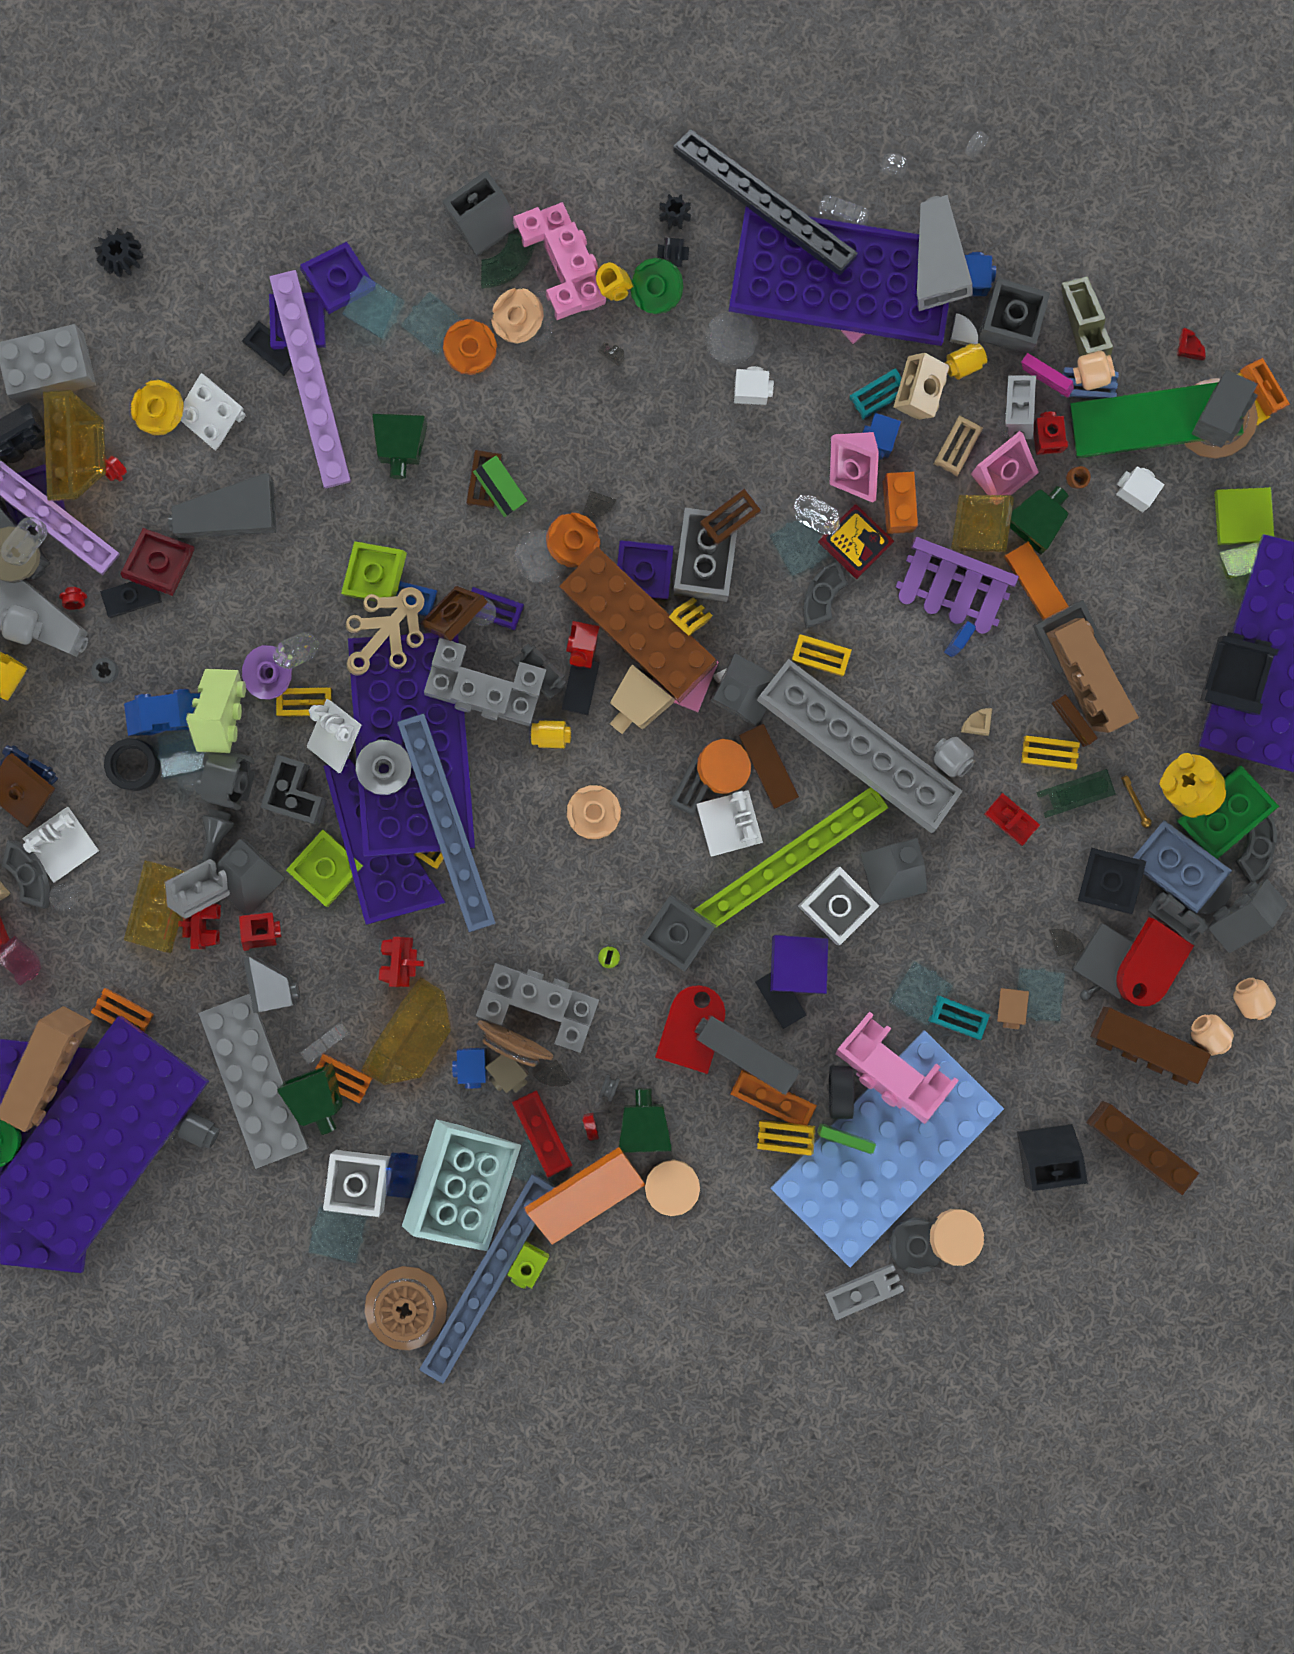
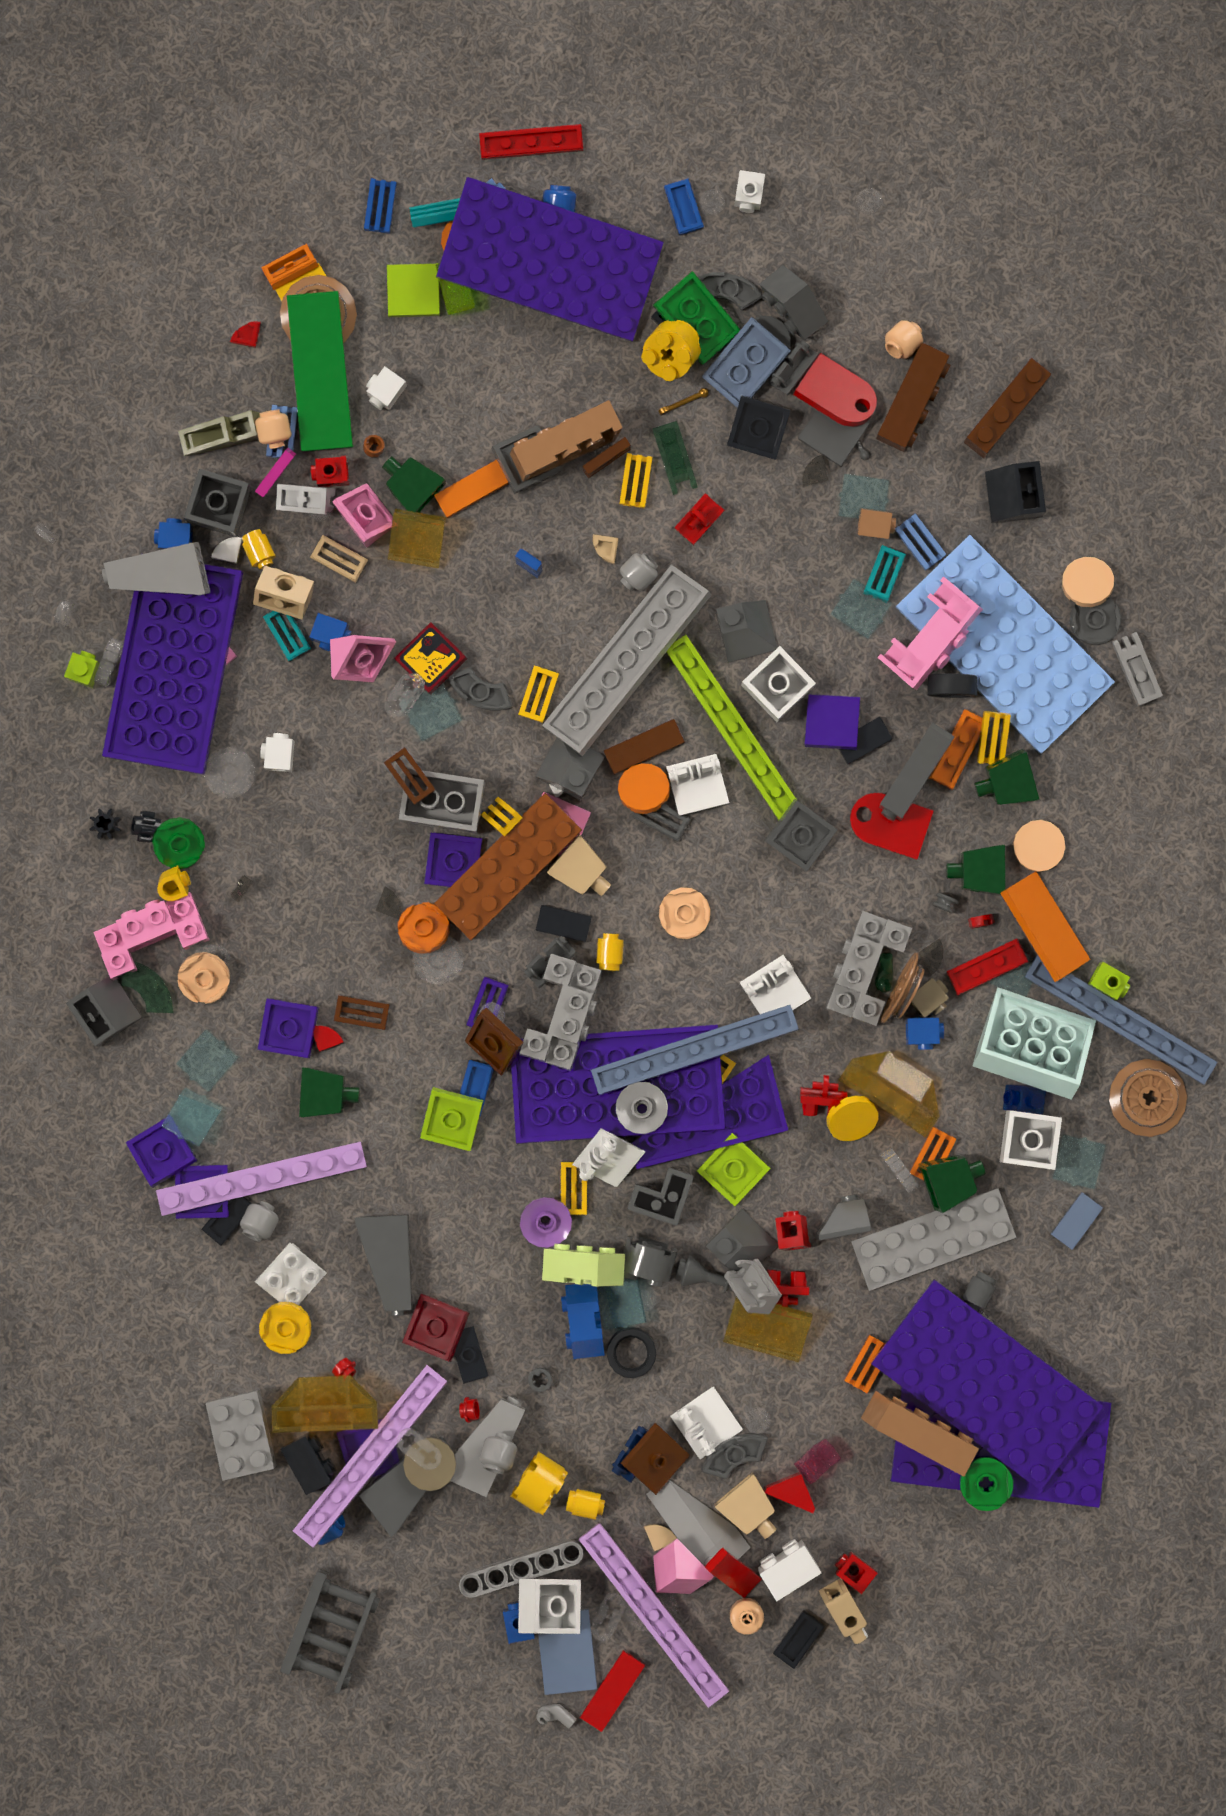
camera: 85 degrees left, 0 degrees up
(111, 260) = (128, 1355): black gear -> none
(265, 378) = (259, 1221): none -> light grey head
(274, 1233) = (1076, 1220): none -> sand blue tile
(299, 654) = (522, 1195): clear beam -> none
(377, 992) = (852, 1118): none -> yellow tile
(387, 627) = (507, 1103): tan plant -> none
(458, 443) = (326, 1037): none -> red tile
(466, 404) = (288, 1028): none -> dark purple tile
(469, 347) = (232, 1024): orange tile -> none
(500, 486) = (370, 996): bright green tile -> none
(516, 909) = (775, 987): none -> white hinge
(533, 1025) = (885, 973): none -> clear green arm
(582, 644) = (525, 920): red brick -> none
(614, 959) = (821, 906): lime hinge -> none
(741, 1155) = (1009, 780): none -> dark green torso
(765, 202) = (99, 737): black tile -> none
(835, 181) = (82, 669): none -> lime brick
(846, 1138) = (995, 682): bright green tile -> none
(900, 502) = (395, 615): orange brick -> none
(969, 584) = (479, 554): medium lavender fence -> none
(1012, 1042) = (907, 524): none -> medium blue tile
(1222, 413) = (320, 310): dark grey brick -> none
(1238, 673) = (568, 304): black panel -> none
(1254, 998) = (871, 299): light nougat head -> none

